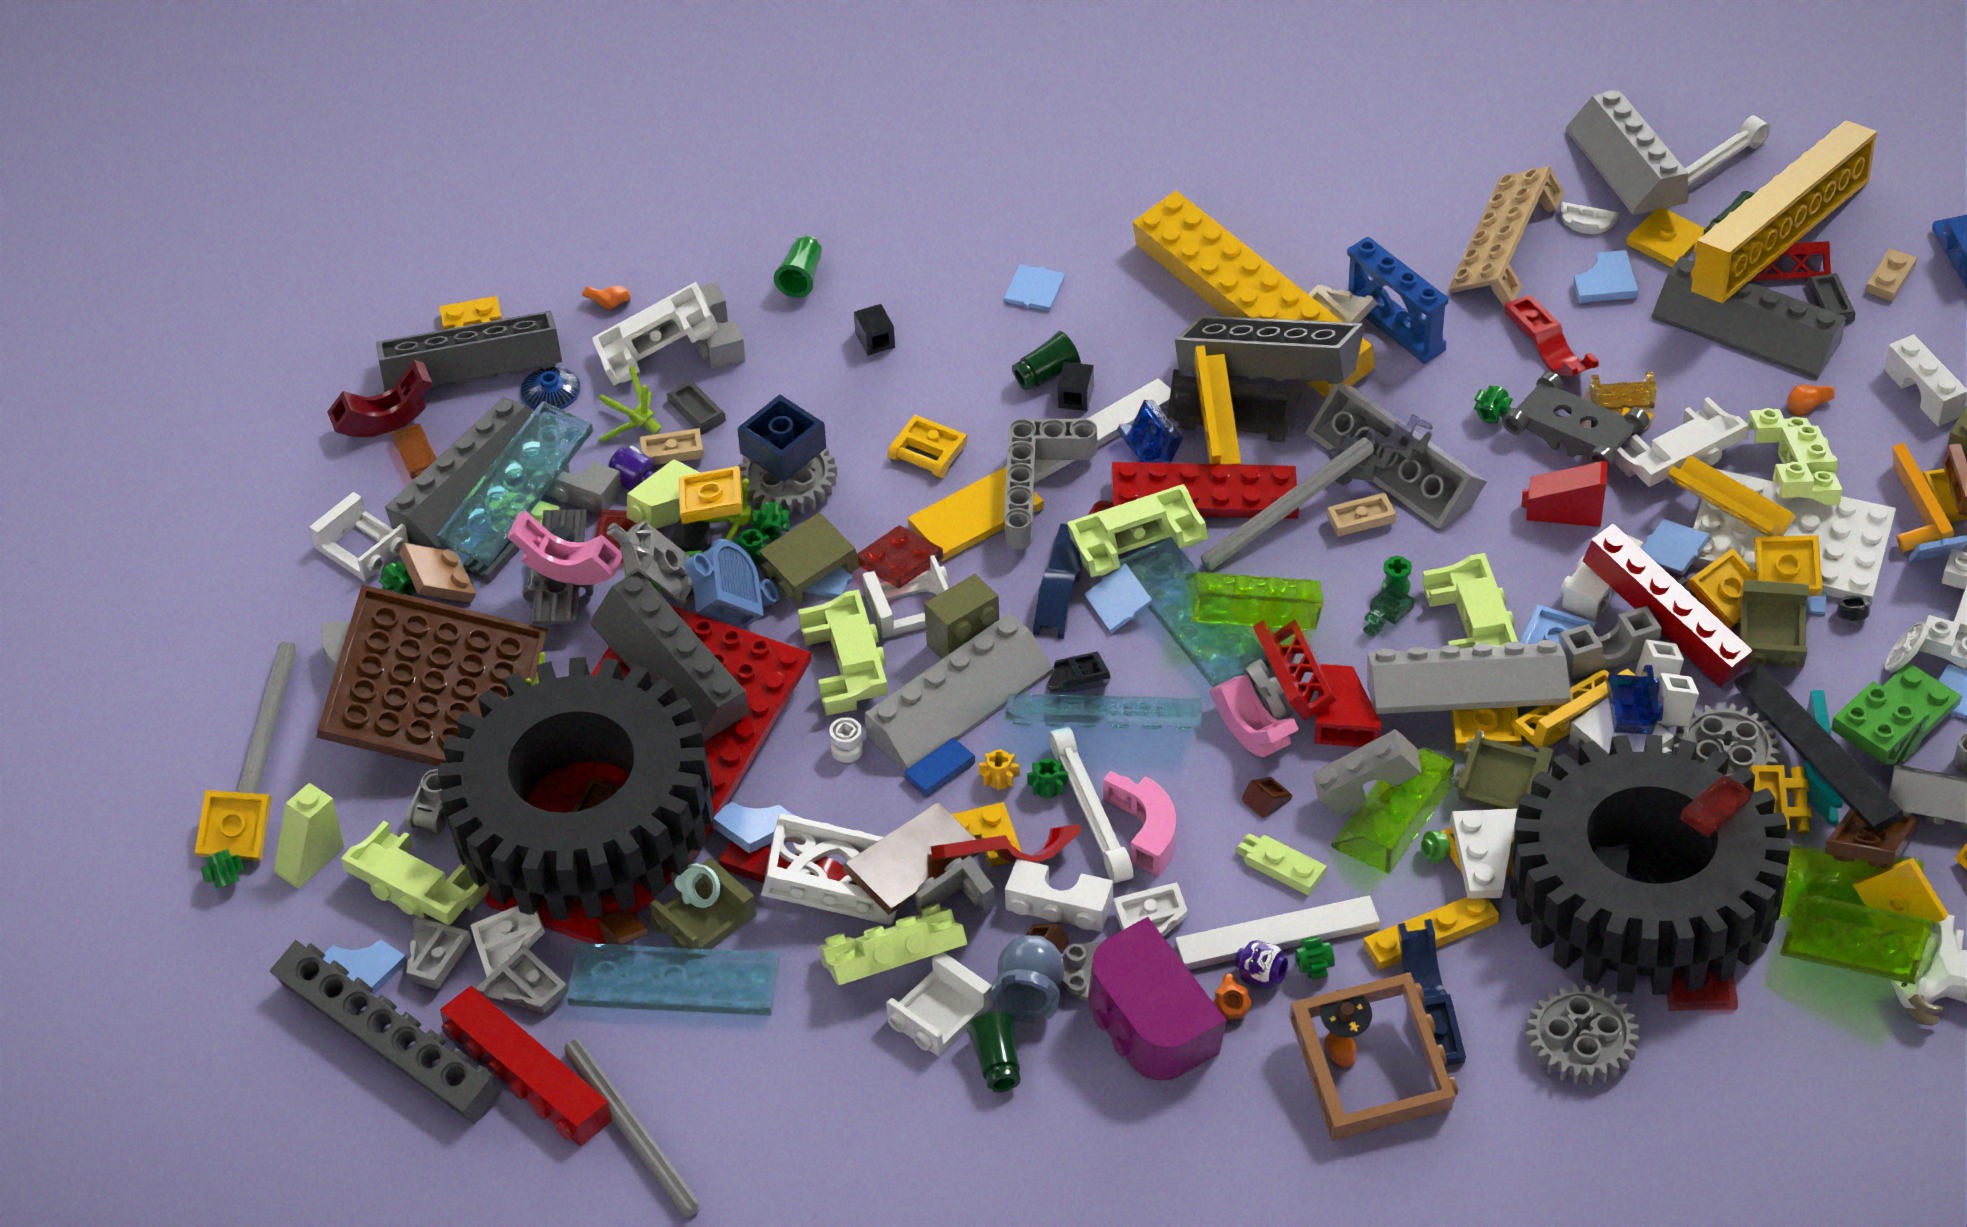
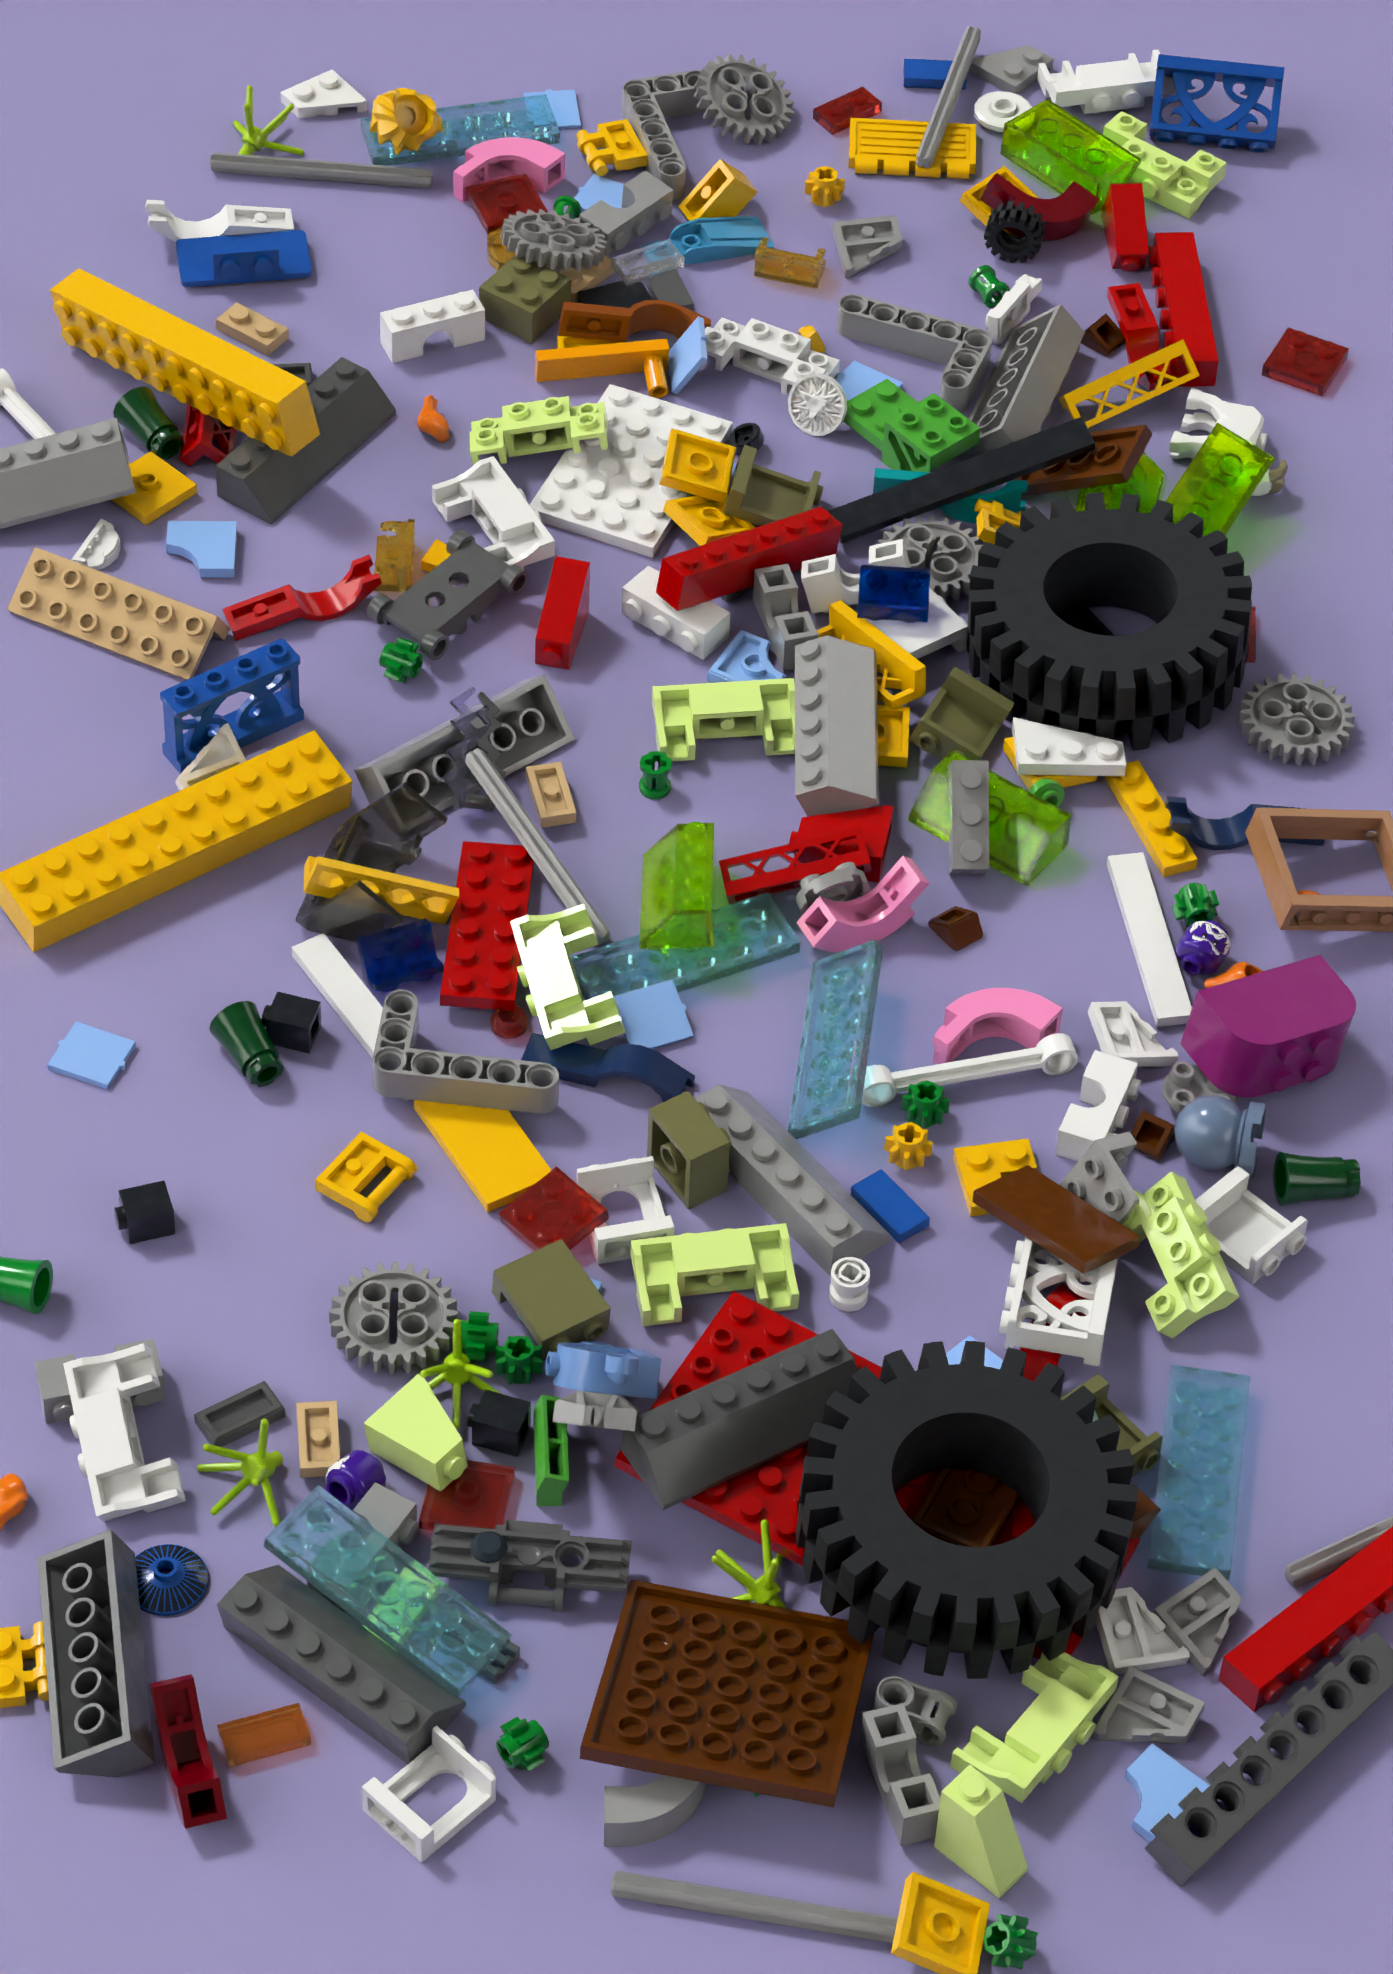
camera: 90 degrees left, 0 degrees up
(387, 791) = (906, 1793): none -> light grey arch
(437, 573) = (521, 1694): medium nougat plate -> none
(564, 560) = (554, 1519): bright pink arch -> none
(710, 494) = (468, 1364): yellow plate -> none
(782, 437) = (376, 1287): dark blue brick -> none
(1057, 840) = (1046, 1148): red piece -> none
(1079, 673) = (767, 1062): black slope -> none
(1274, 347) = (298, 818): dark grey slope -> none
(1282, 863) = (1053, 924): yellowish green hinge -> none
(1347, 1017) = (1304, 868): piece -> none
(1387, 606) = (698, 787): clear green plate -> none
(1675, 546) = (640, 547): light blue piece -> none
(1716, 805) = (1086, 530): clear red plate -> none
(1732, 497) = (598, 486): yellow fence -> none
(1901, 890) = (1164, 455): yellow plate -> none

